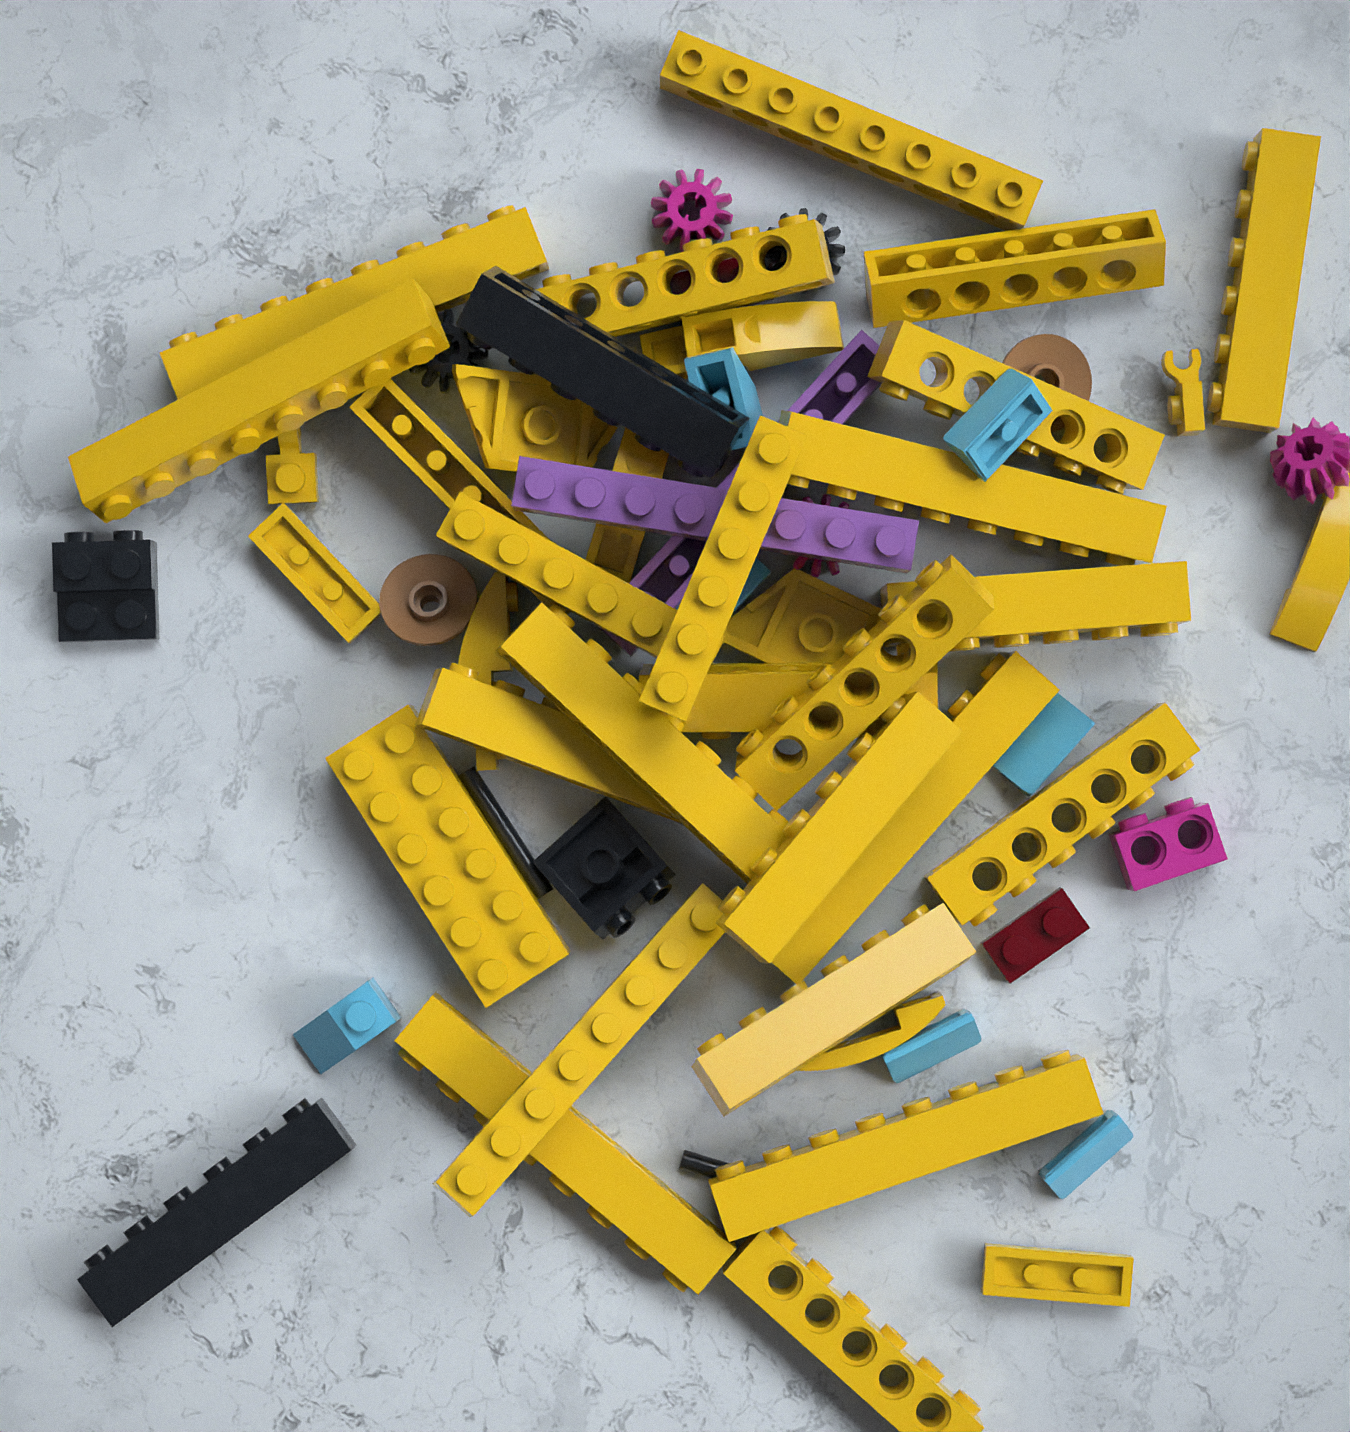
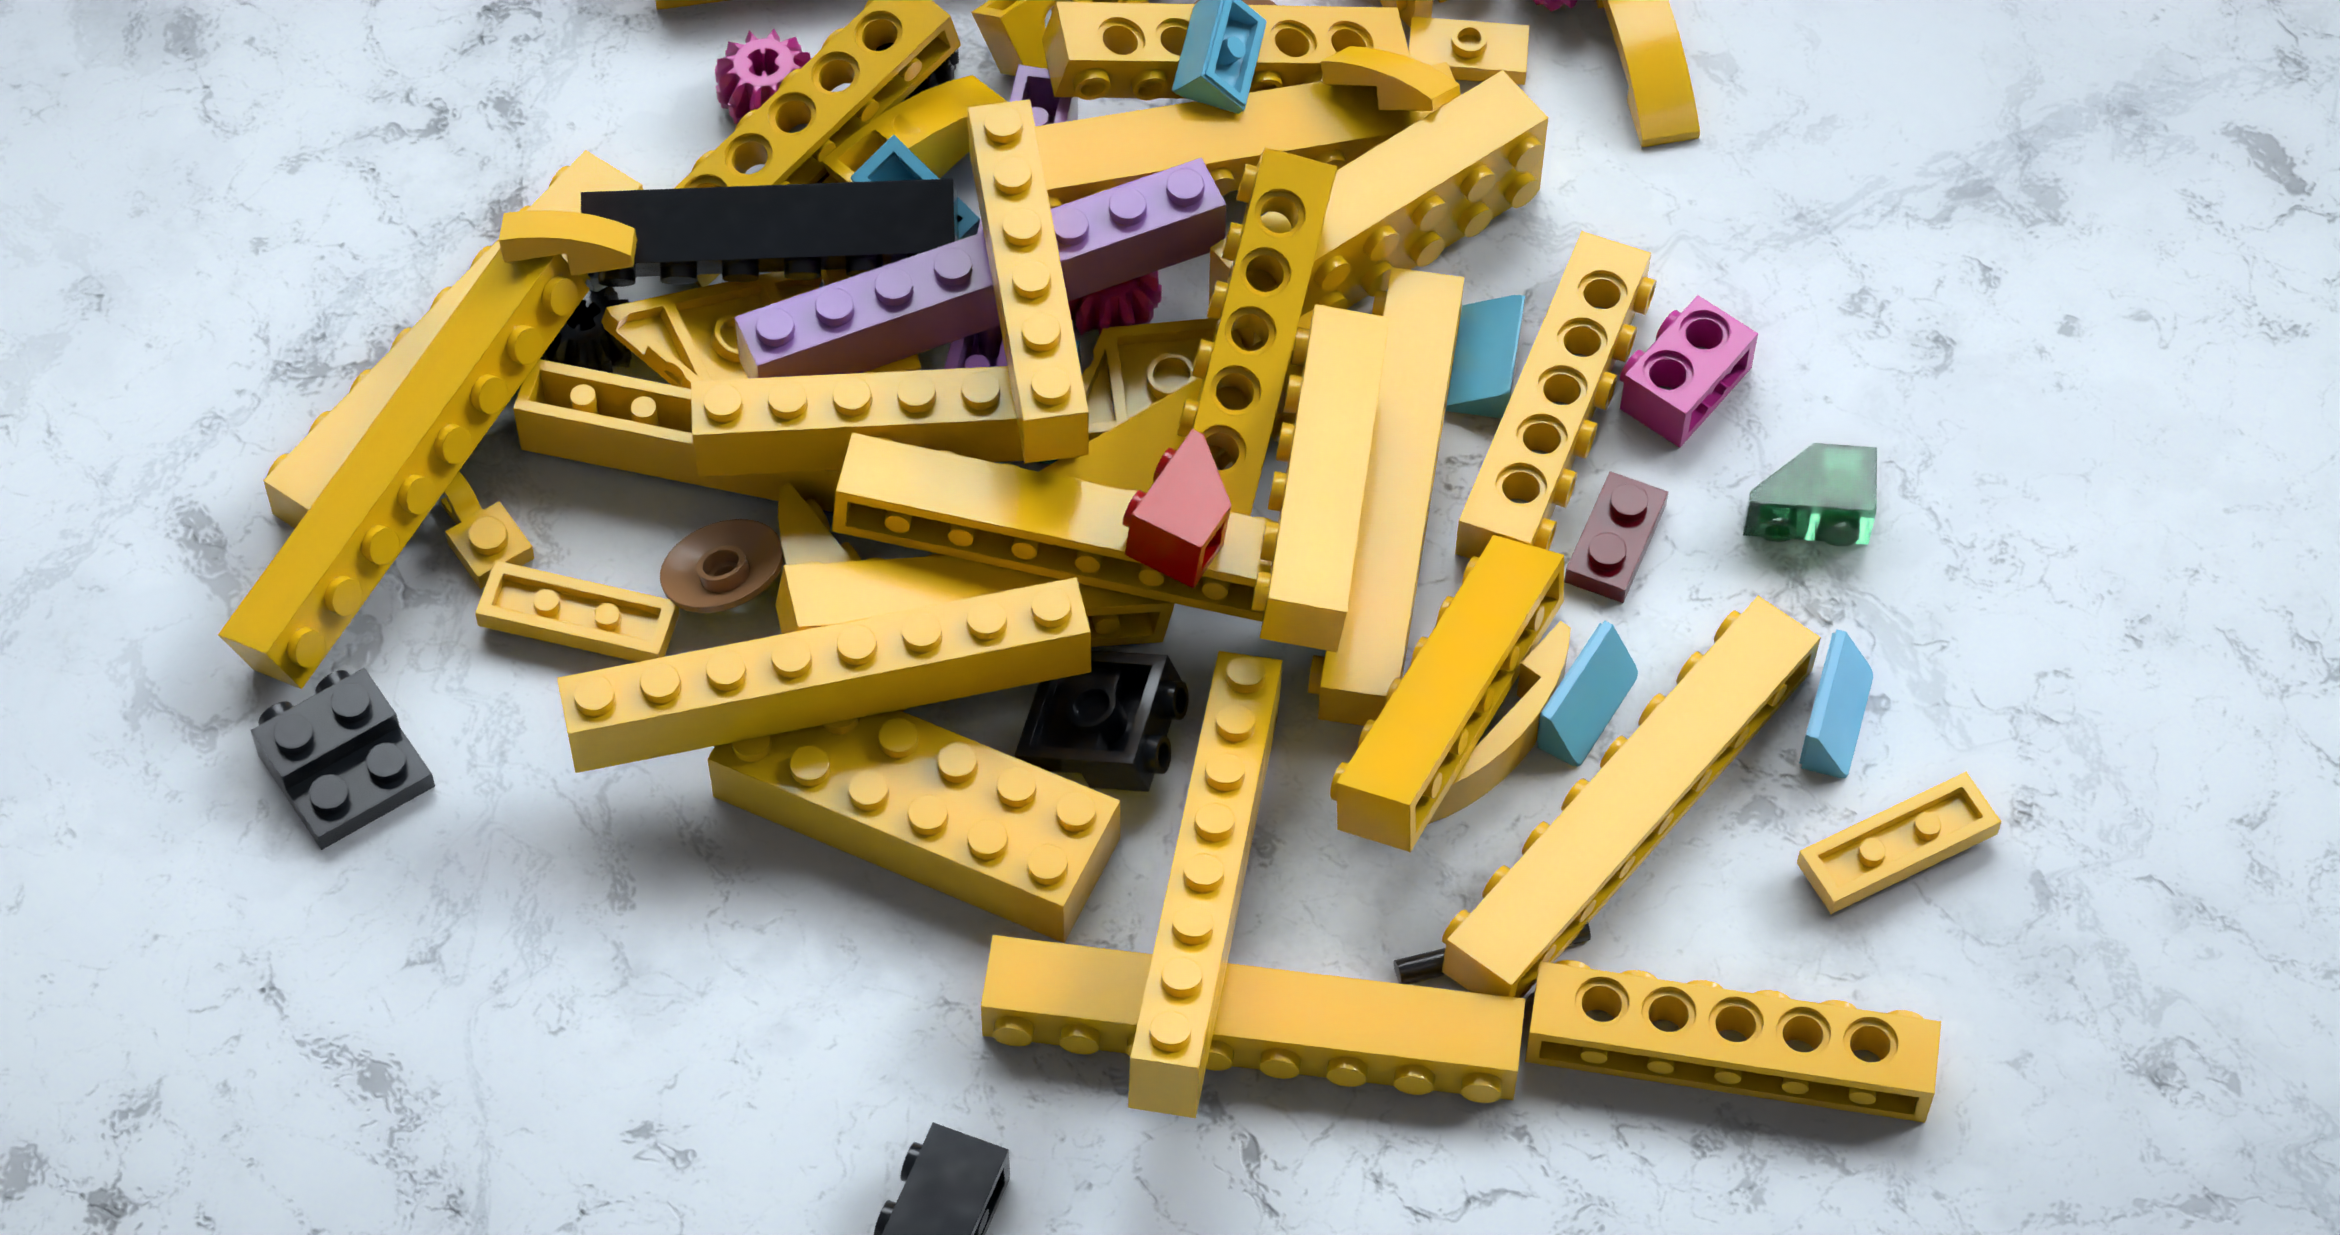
camera: 30 degrees left, 30 degrees down
(347, 1026) = (914, 1039): medium azure slope -> none
(422, 763) = (825, 674): none -> yellow brick
(453, 317) = (586, 239): none -> yellow slope
(721, 809) = (1182, 515): none -> slope
(1112, 520) = (1399, 79): none -> yellow slope
(1189, 996) = (1817, 497): none -> clear green slope
(1201, 483) = (1471, 47): none -> yellow plate

